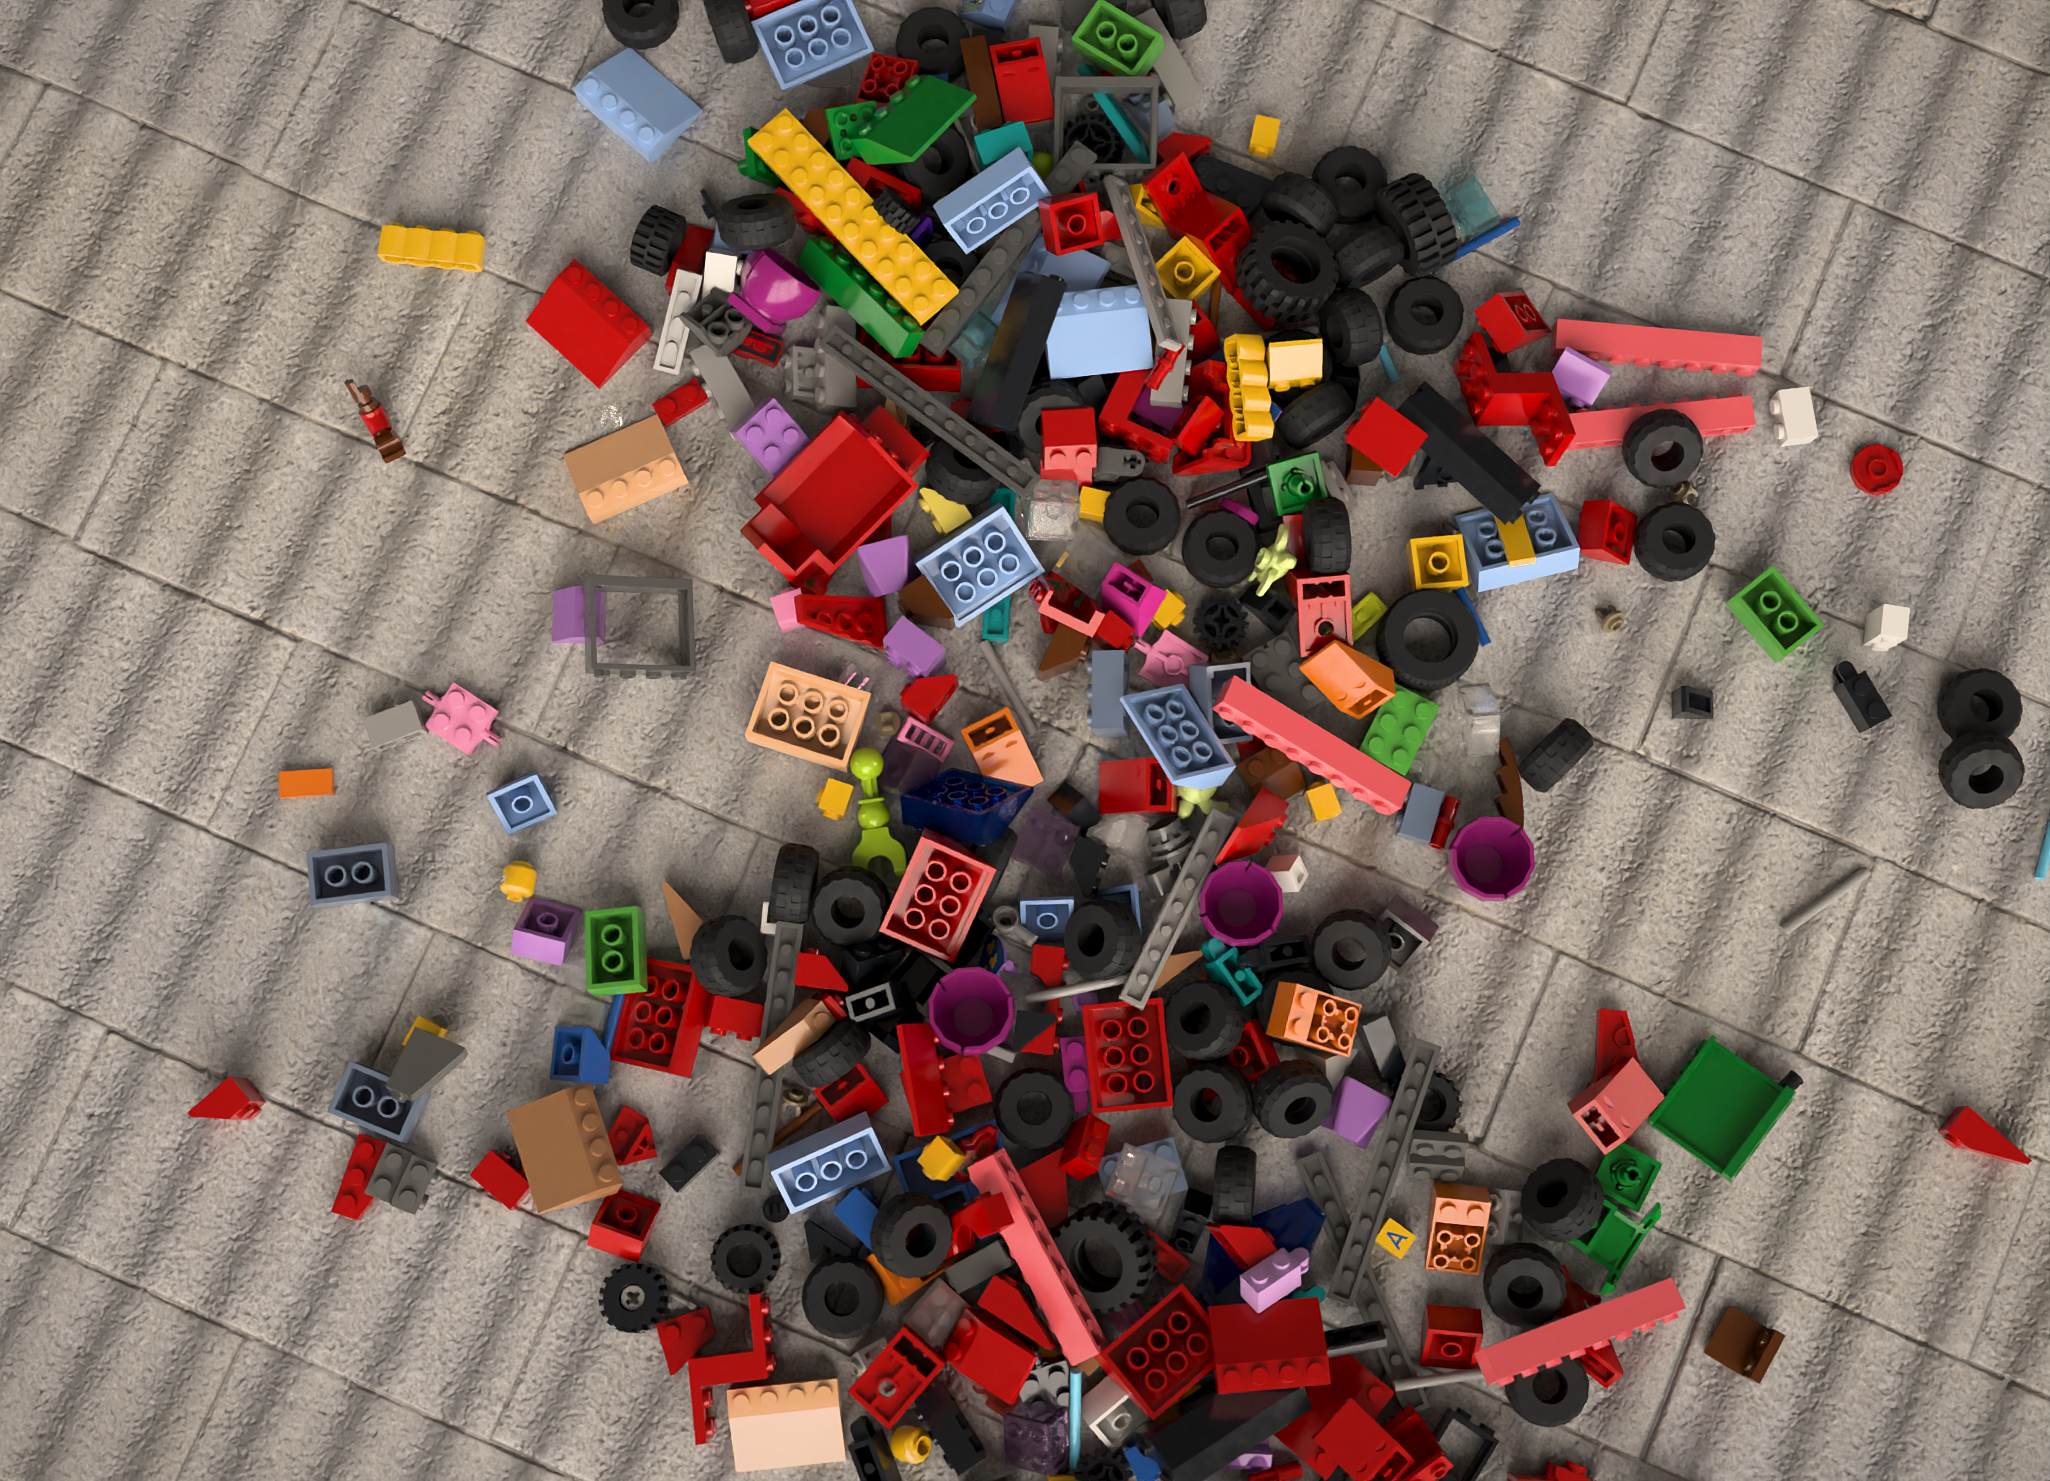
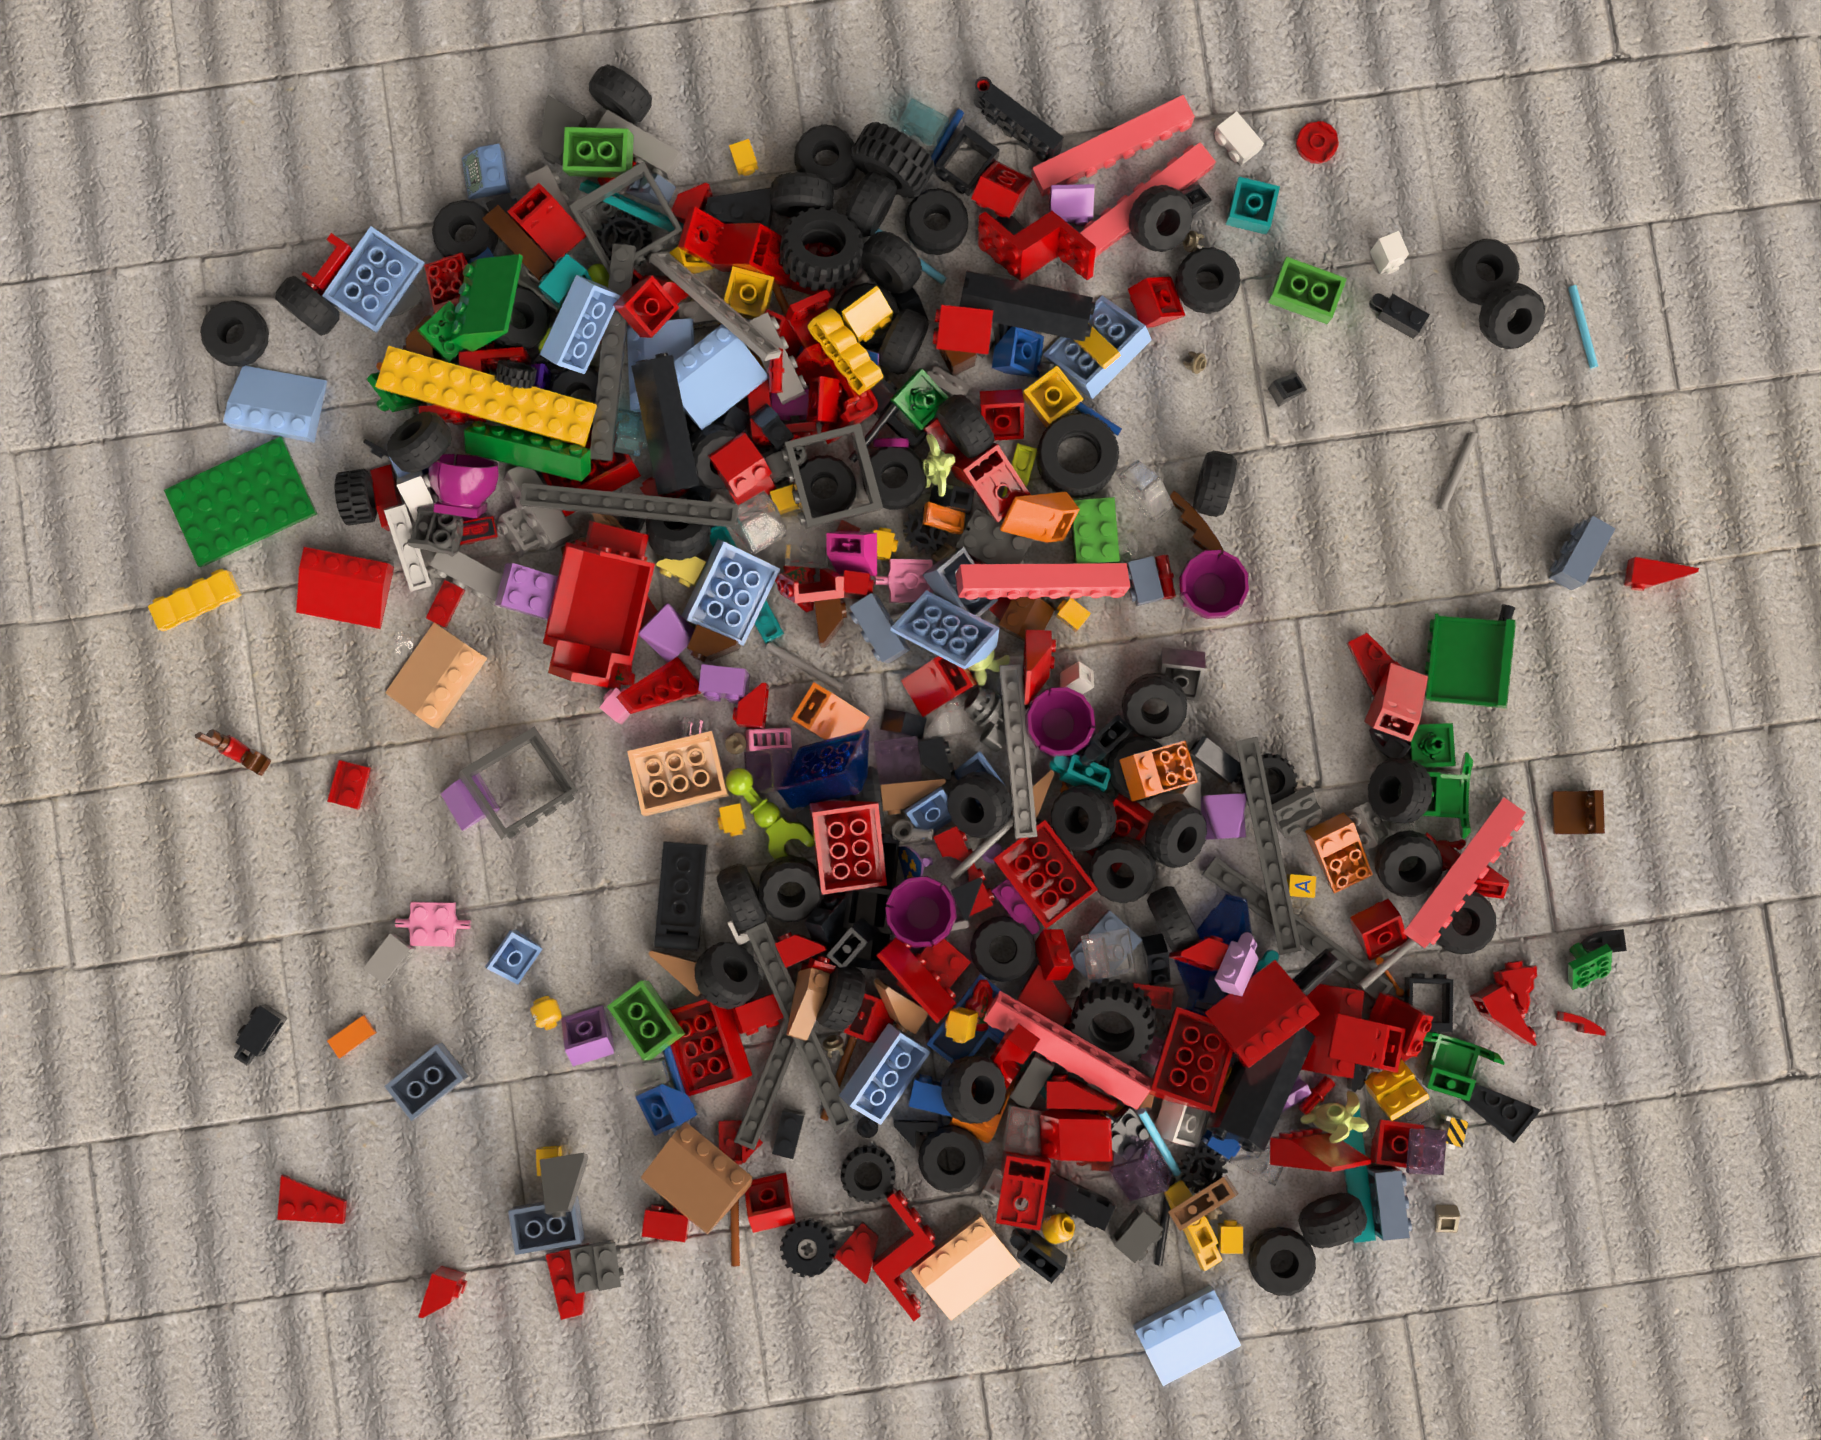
camera: 30 degrees left, 5 degrees up
(151, 927) = (307, 1204): none -> red wing
(215, 721) = (258, 1033): none -> black brick
(467, 525) = (349, 784): none -> red plate
(540, 179) = (240, 502): none -> green plate
(567, 1235) = (735, 1239): none -> dark orange bar
(695, 1102) = (766, 1089): none -> dark grey tile
(741, 832) = (681, 883): none -> black hinge
(888, 1105) = (901, 1009): none -> medium nougat slope
(1027, 881) = (902, 795): none -> medium nougat slope
(1110, 505) = (866, 469): none -> dark grey window
(1125, 419) = (771, 426): none -> black slope
(1227, 322) = (803, 312): none -> red bracket
(1247, 620) = (943, 518): none -> orange tile
(1375, 551) = (1003, 413): none -> red slope
(1429, 499) = (1018, 352): none -> blue slope
(1433, 1419) = (1399, 991): none -> orange hinge
(1514, 260) = (977, 143): none -> black window
(1570, 262) = (1016, 120): none -> black hinge
(1579, 1144) = (1389, 744): none -> black plate
(1714, 452) = (1197, 197): none -> black slope
(1768, 493) = (1252, 205): none -> teal brick
(1910, 1066) = (1581, 553): none -> sand blue brick

